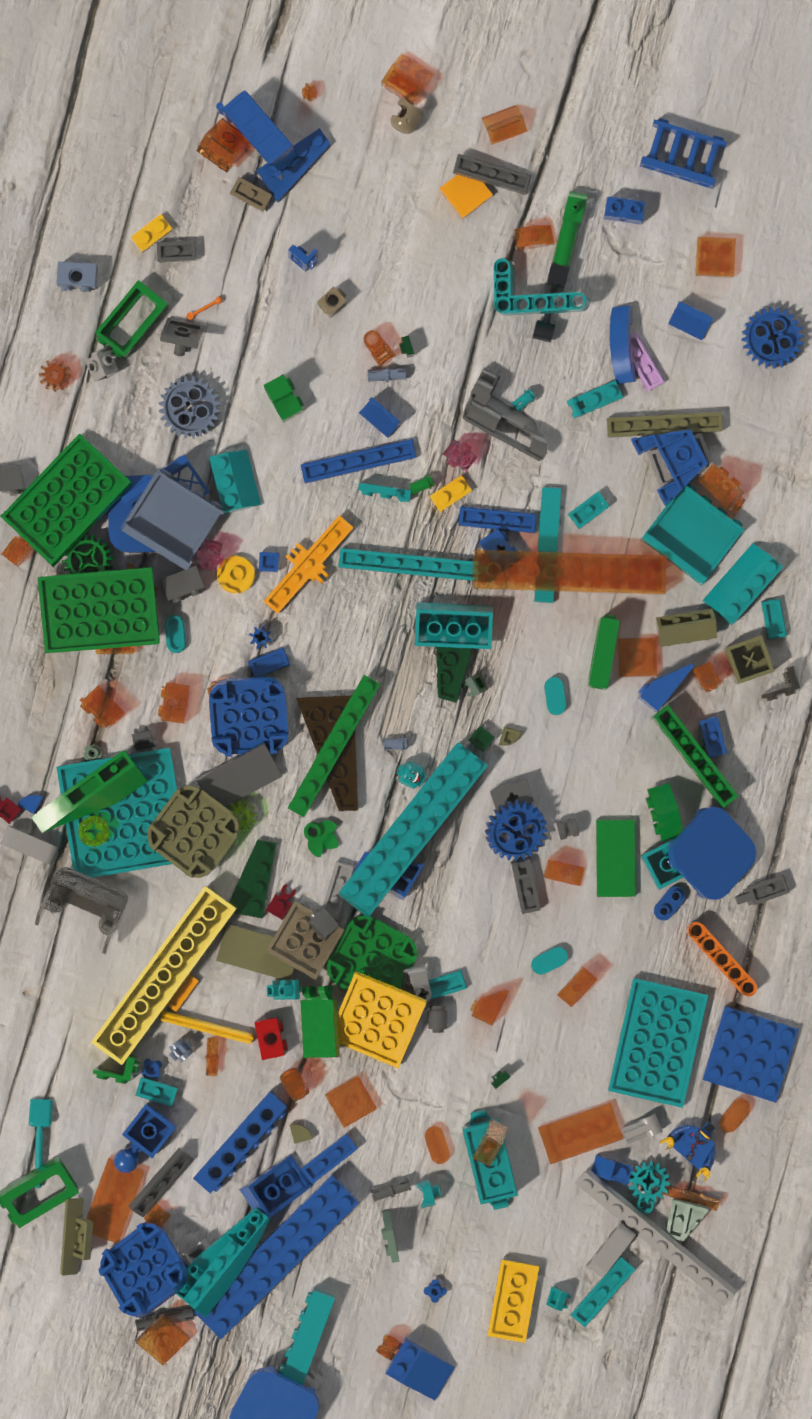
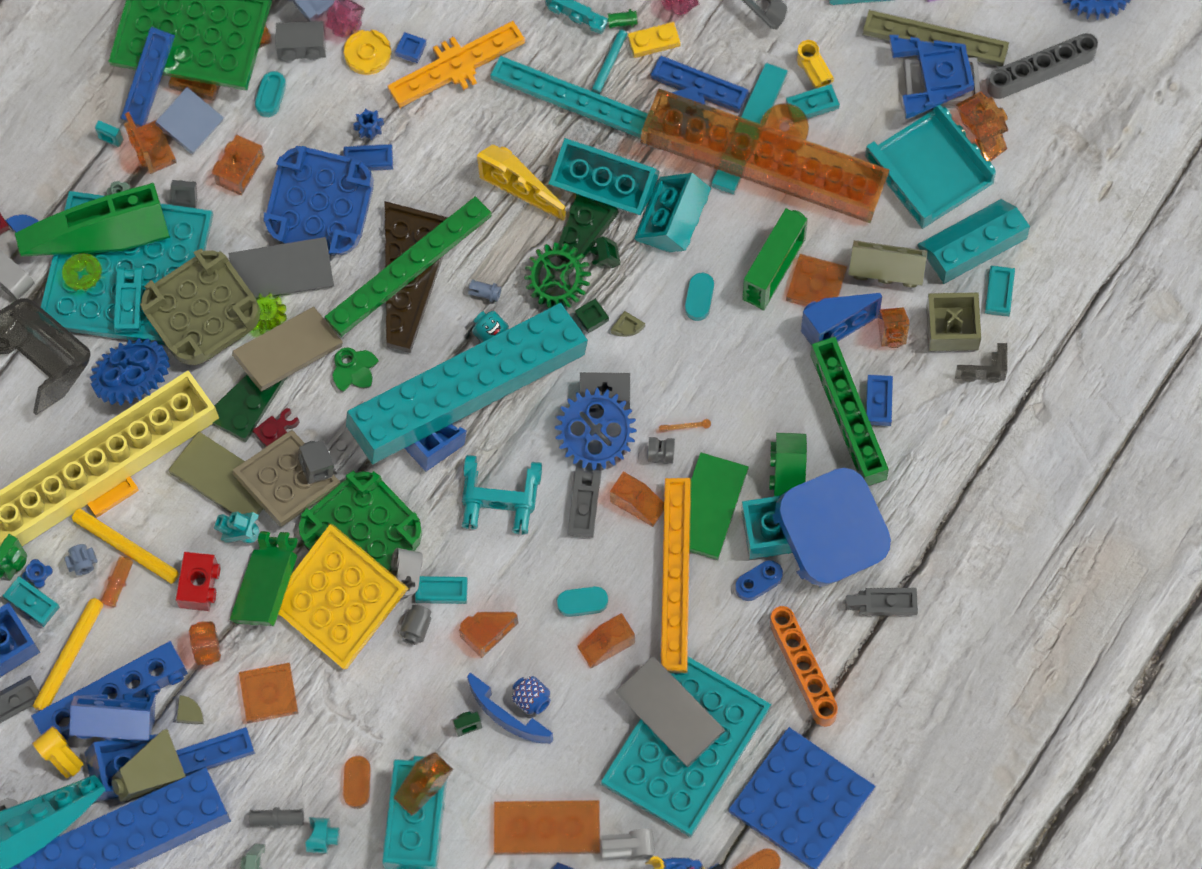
camera: 25 degrees right, 20 degrees down
(67, 709) = (109, 133): none -> teal tile
(80, 657) = (148, 75): none -> blue tile
(123, 678) = (189, 120): none -> sand blue tile
(137, 842) = (128, 300): none -> teal plate
(159, 882) = (130, 371): none -> blue gear
(199, 1122) = (68, 654): none -> yellow axle
(221, 1197) = (54, 747): none -> yellow piece
(254, 1163) = (113, 718): none -> wedge
(268, 840) = (287, 348): none -> dark tan tile
(291, 1190) = (149, 769): none -> olive slope
(382, 644) = (508, 173): none -> yellow wedge
(423, 523) = (609, 61): none -> teal bar
(458, 727) = (544, 259): none -> green gear
(481, 903) = (521, 502): none -> teal connector
(513, 636) = (673, 212): none -> teal slope
(538, 1044) = (531, 695): none -> blue head
(548, 1069) = (532, 731): none -> blue slope
(578, 544) = (787, 113): none -> clear orange dish
(581, 480) = (814, 66): none -> yellow piece
(592, 795) = (706, 423): none -> clear orange hinge
(610, 921) = (676, 575): none -> light orange tile
(640, 1026) = (670, 711): none -> tile
(756, 414) = (1035, 74): none -> dark grey beam

